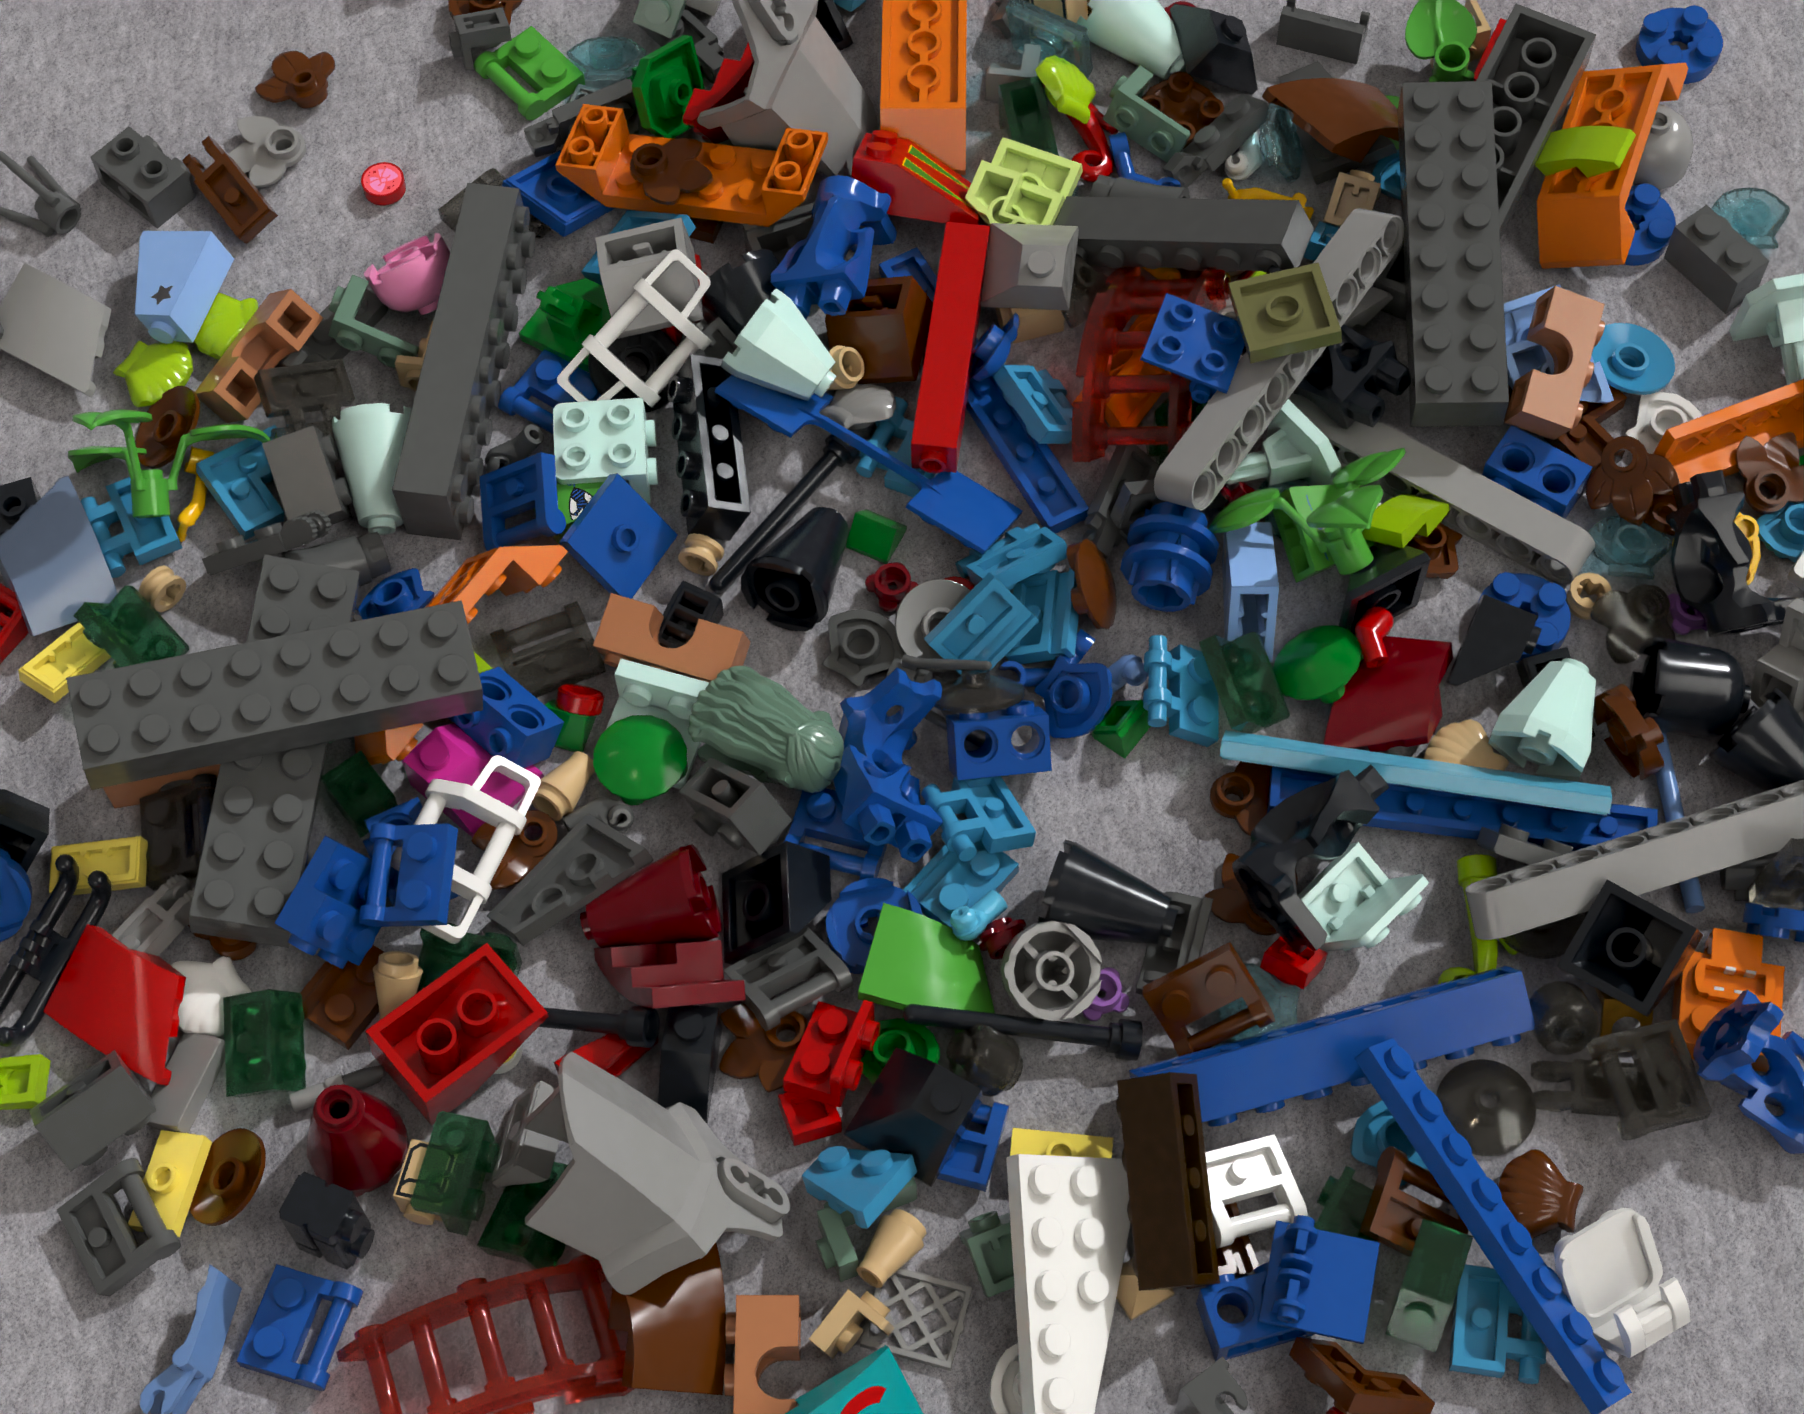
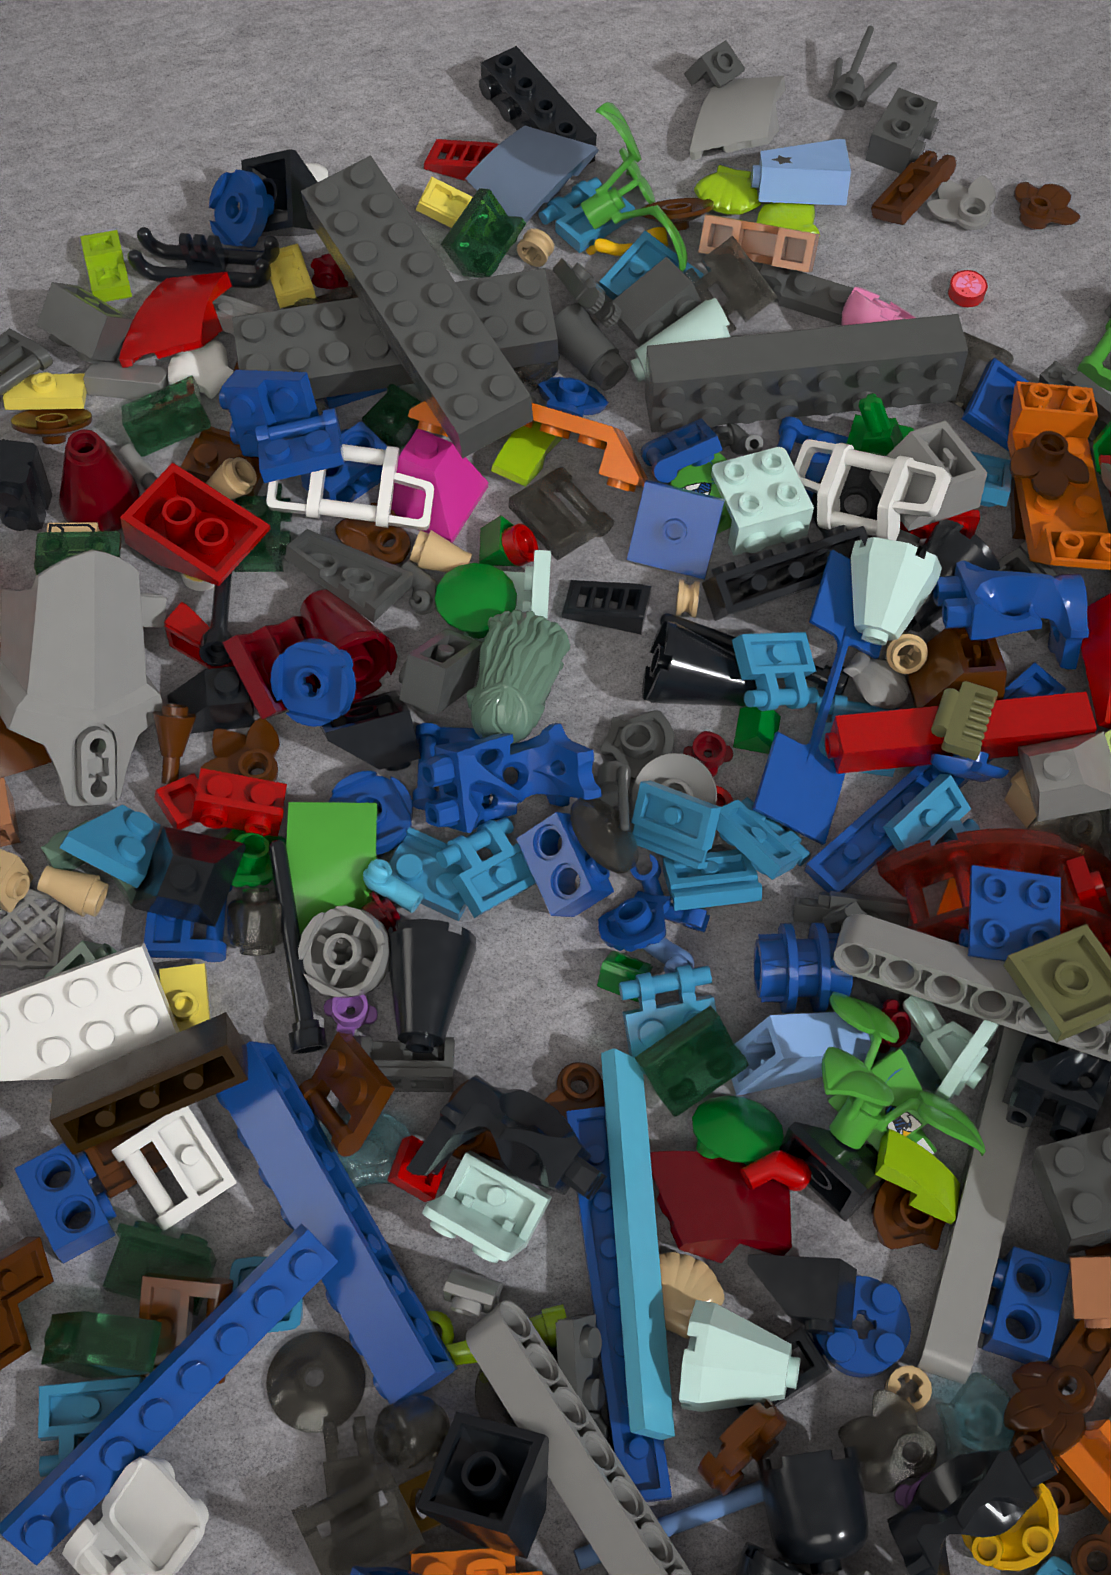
camera: 70 degrees right, 0 degrees up
(113, 817) = (327, 273): none -> dark red plate
(359, 336) = (819, 284): sand green bracket -> none
(511, 721) = (485, 495): blue brick -> none
(631, 633) = (584, 561): nougat arch -> none
(699, 918) = (333, 670): none -> blue plate
(724, 1101) = (173, 732): none -> reddish brown cone
(783, 967) = (308, 747): dark grey plate -> none
(826, 488) = (775, 656): none -> dark azure plate
(947, 336) = (964, 718): none -> olive piece
(1095, 584) = (752, 908): reddish brown dish -> none
(1156, 283) = (1087, 885): none -> red plate
(1319, 1281) = (84, 1240): blue hinge -> none
(1439, 926) = (471, 1293): none -> light grey slope
(1539, 1194) = (227, 1443): reddish brown animal -> none

